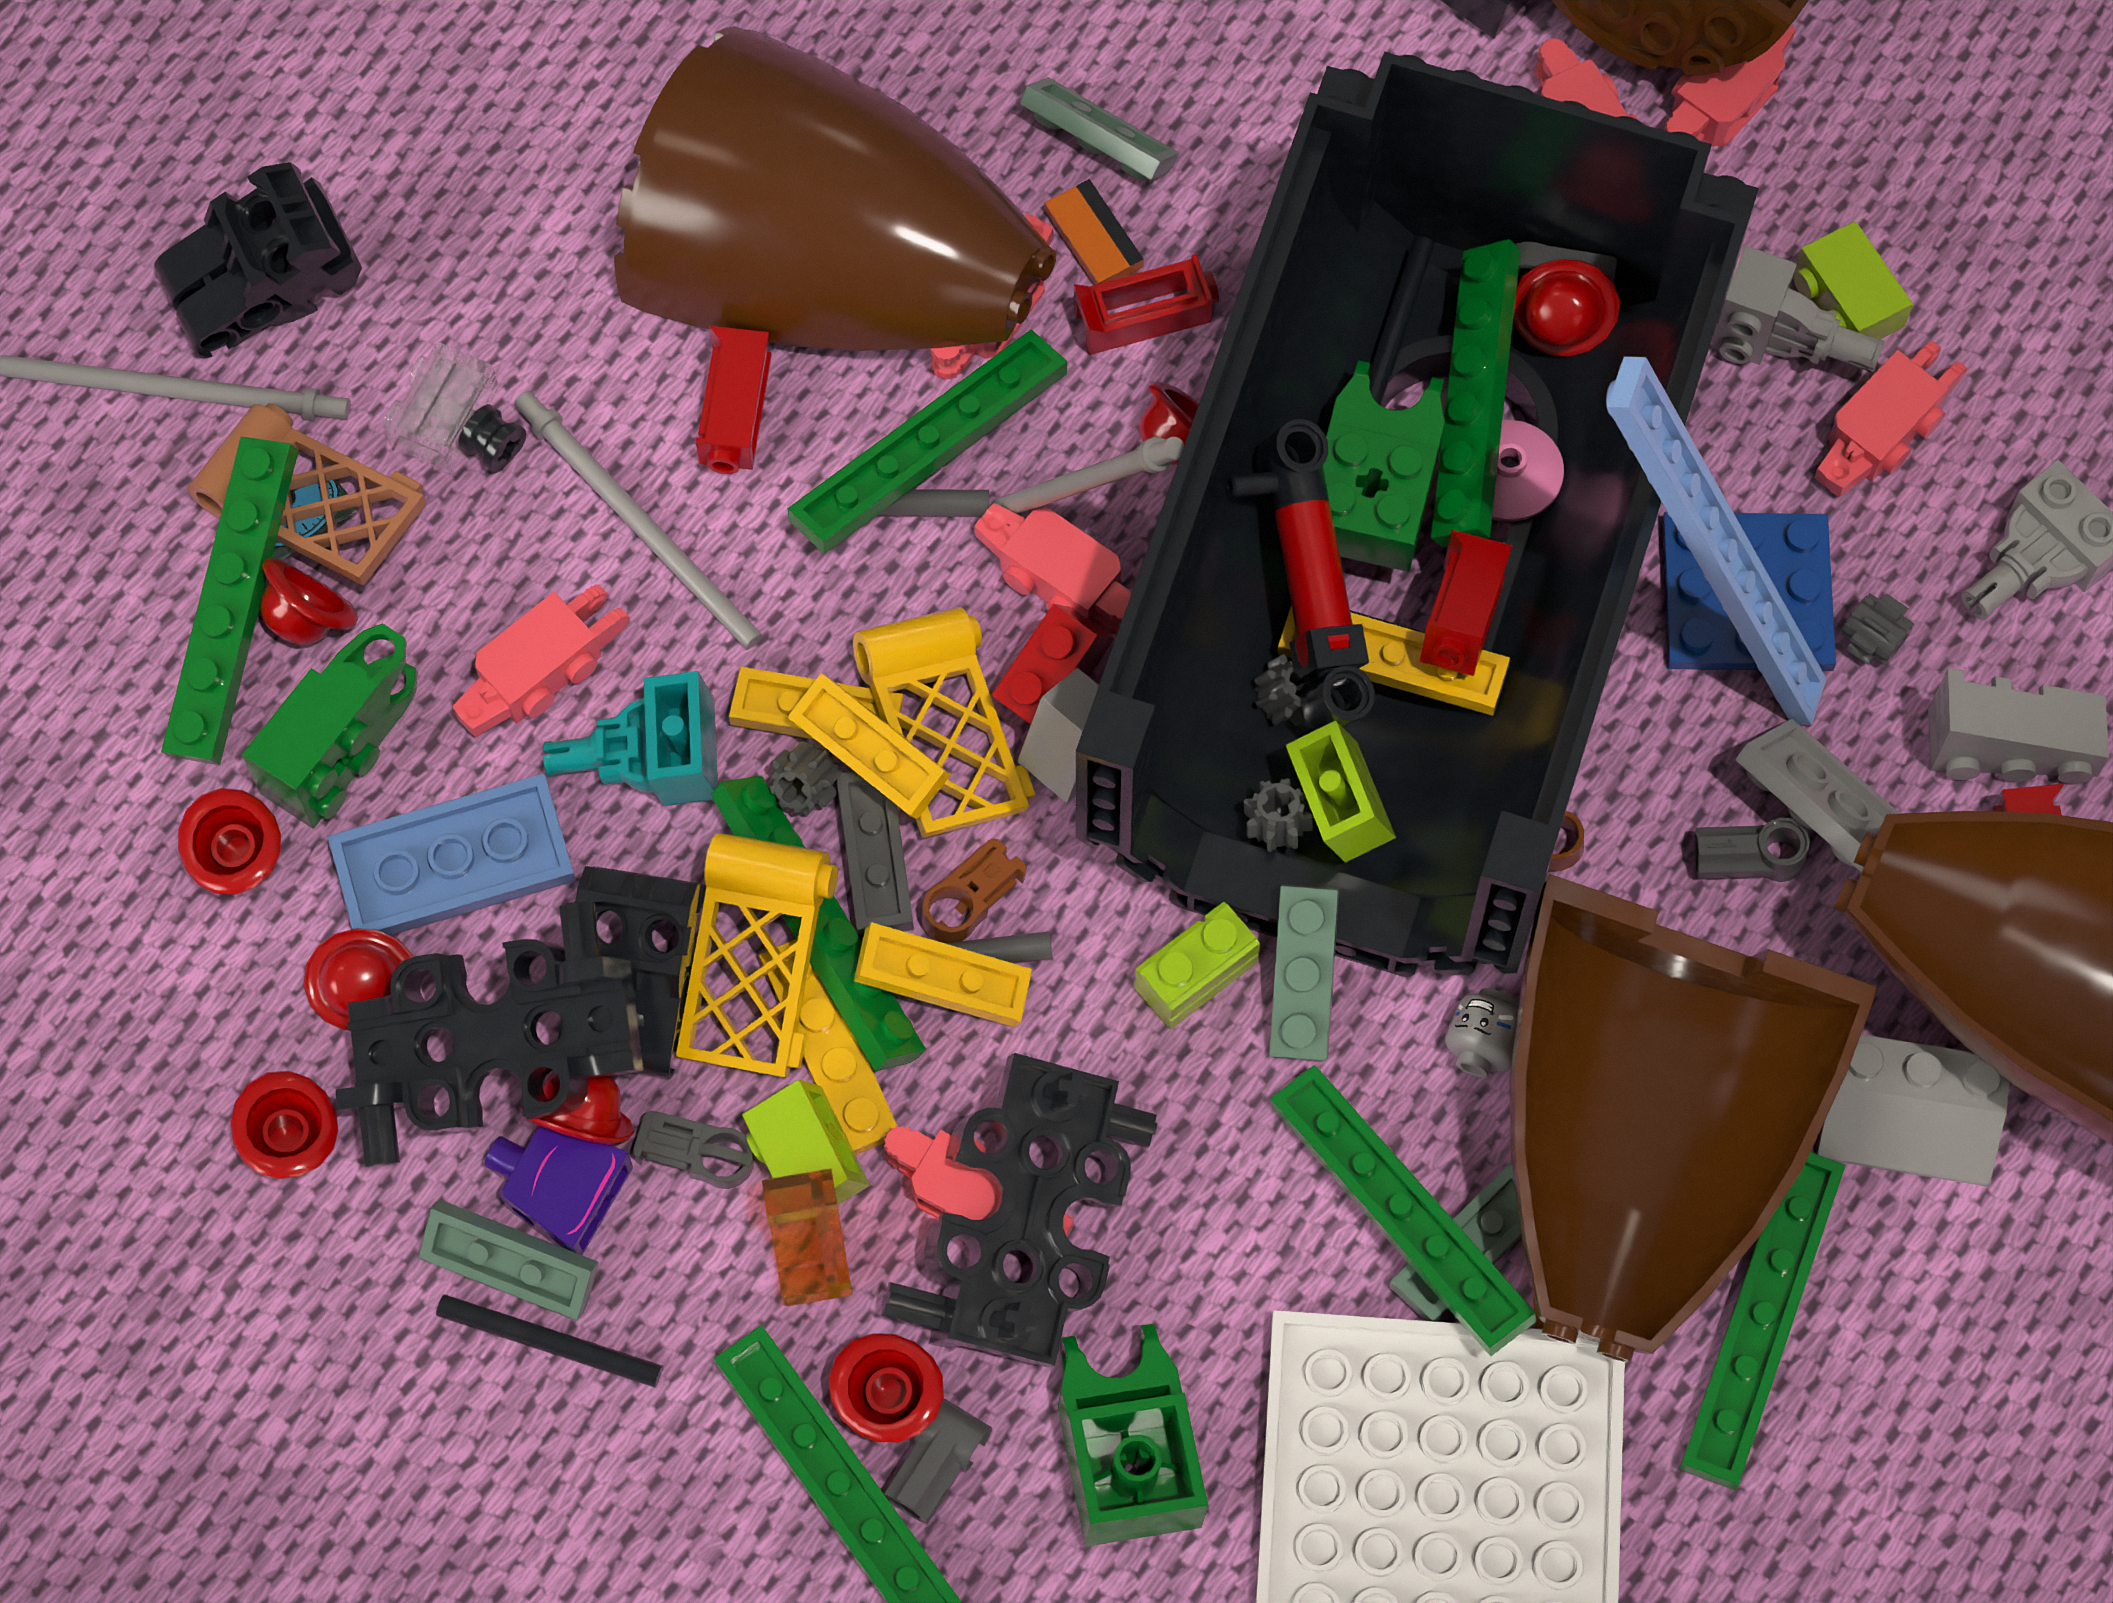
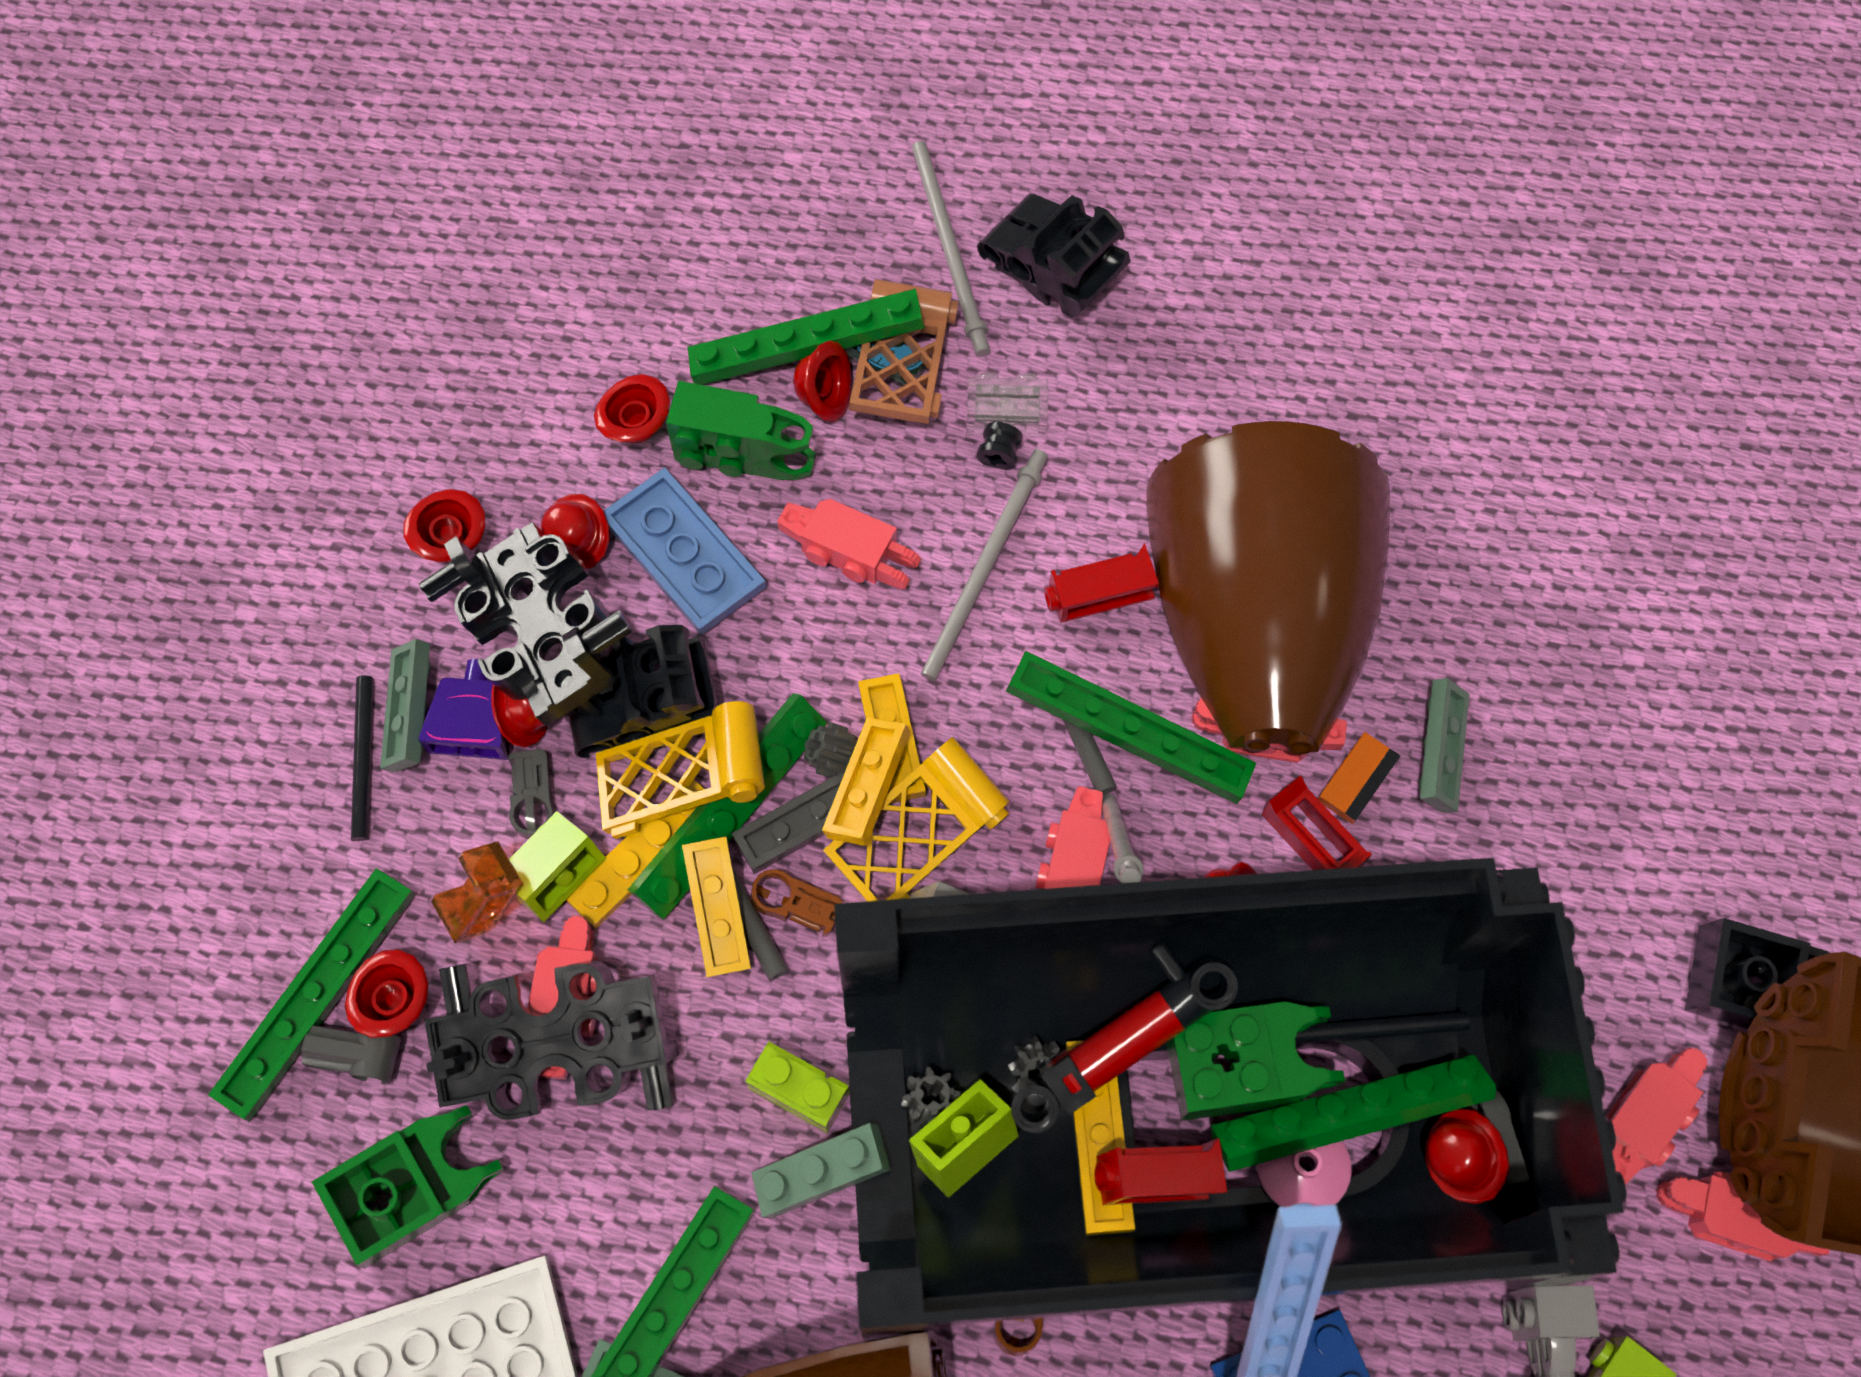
camera: 65 degrees right, 0 degrees up
(653, 744) = (816, 643): teal brick -> none
(1053, 651) = (985, 873): red brick -> none
(1483, 1032) = (827, 1328): light grey head -> none

